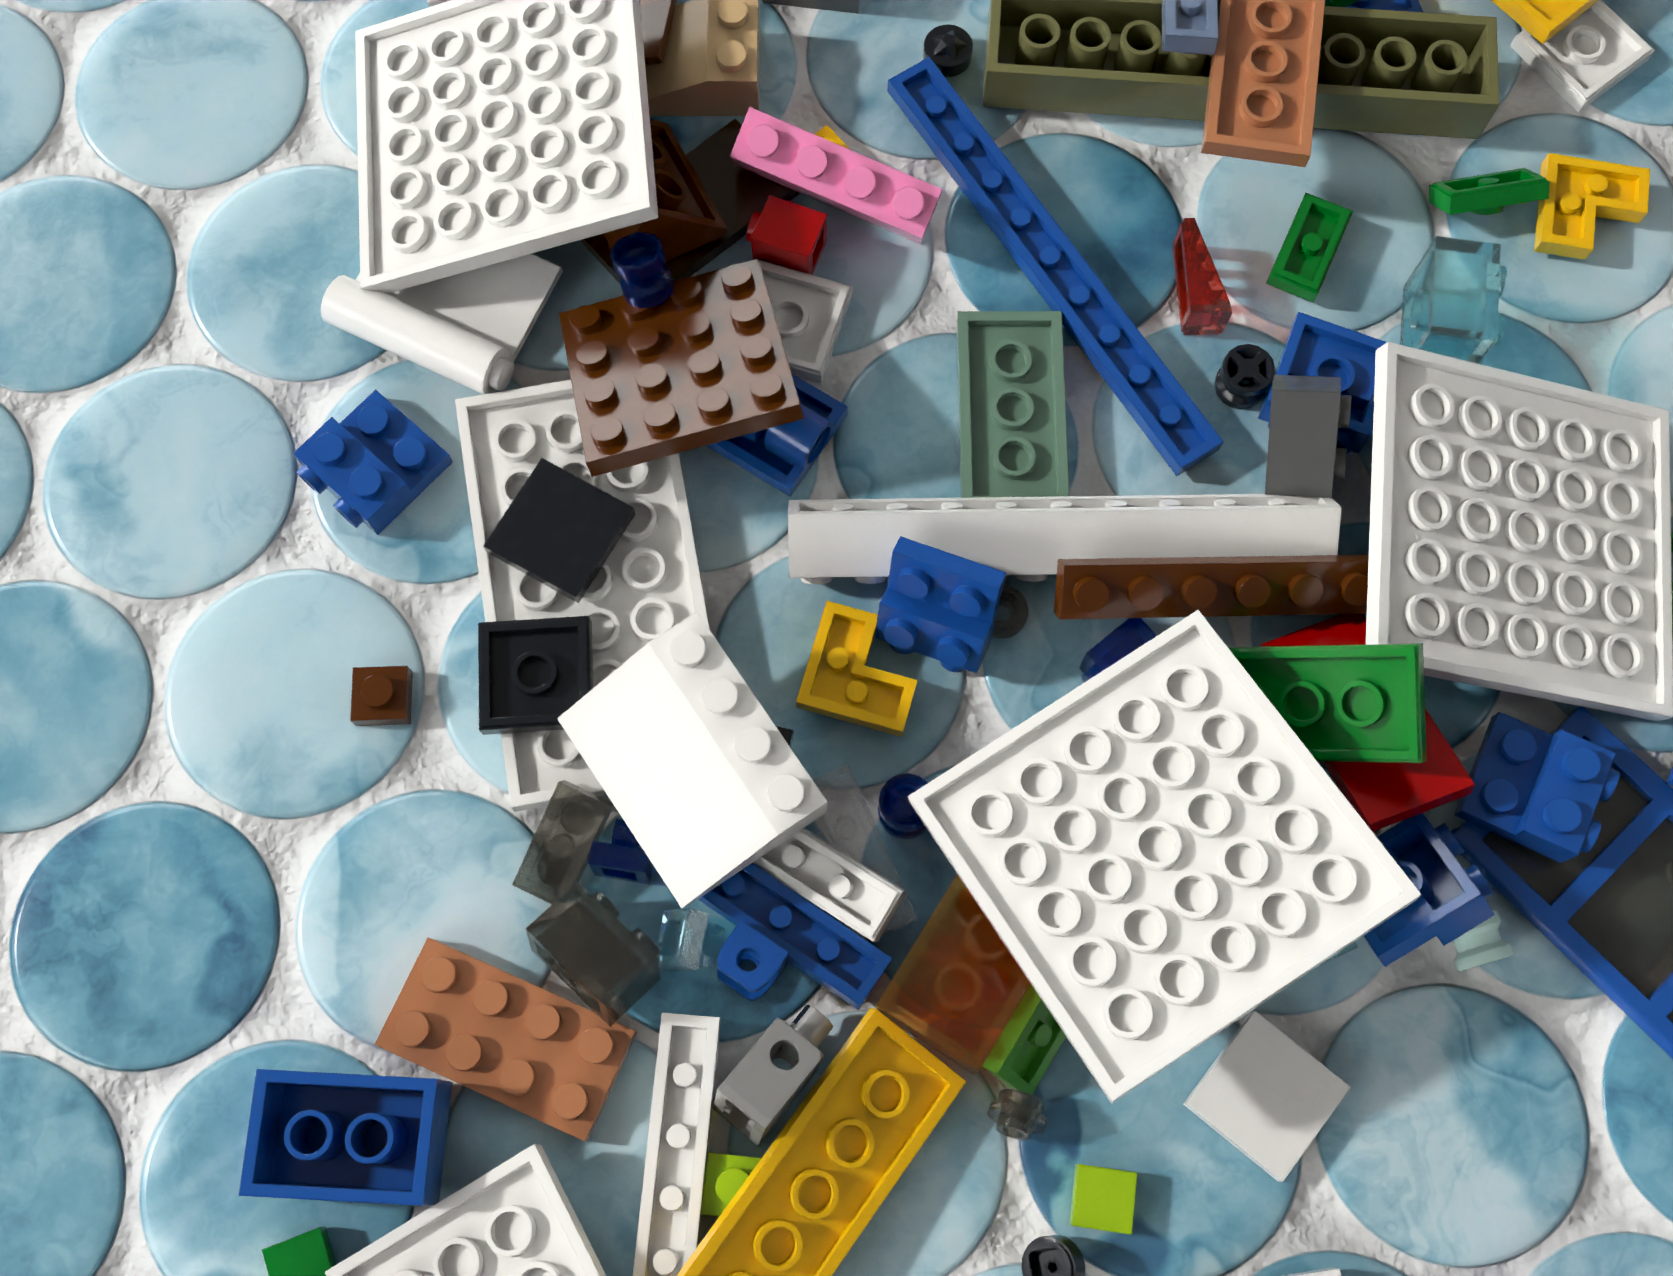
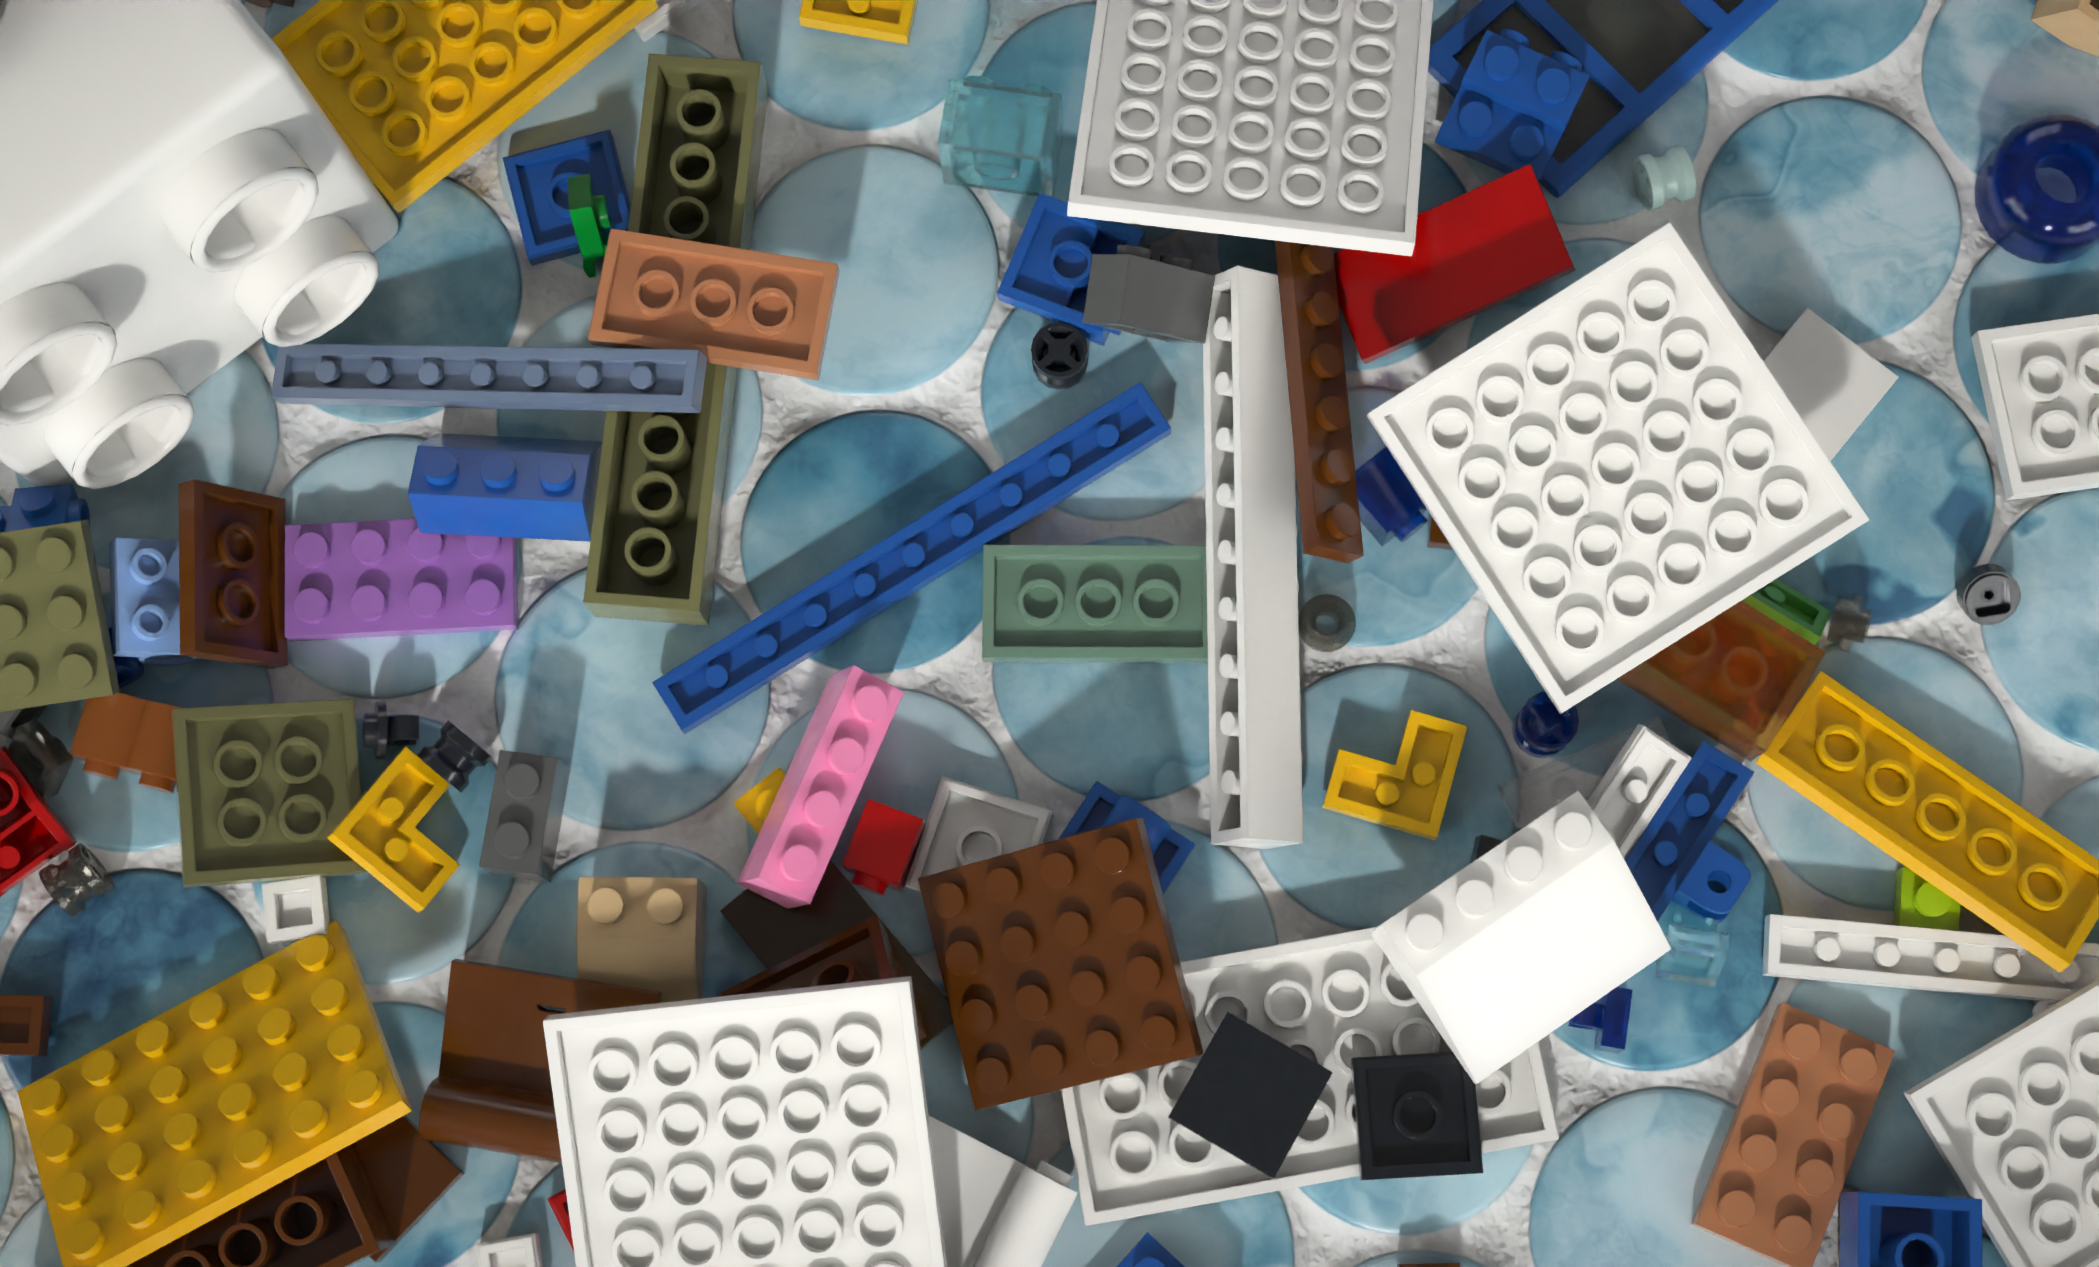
camera: 85 degrees left, 5 degrees up
(562, 842) = (1597, 1080): clear smoke plate -> none
(595, 952) = (1711, 1040): clear smoke brick -> none
(642, 269) = (936, 1004): clear blue wheel -> none
(757, 1090) = (1844, 875): light grey torso -> none
(939, 606) = (1341, 682): blue plate -> none
(949, 49) = (632, 663): black tile -> none
(1103, 1199) = (1920, 545): lime tile -> none
(1200, 293) = (949, 398): clear red slope -> none
(1309, 247) = (903, 276): green plate -> none
(1346, 698) = (1447, 286): green tile -> none
(1450, 898) = (1616, 214): blue plate -> none
(1488, 192) = (842, 84): green plate -> none

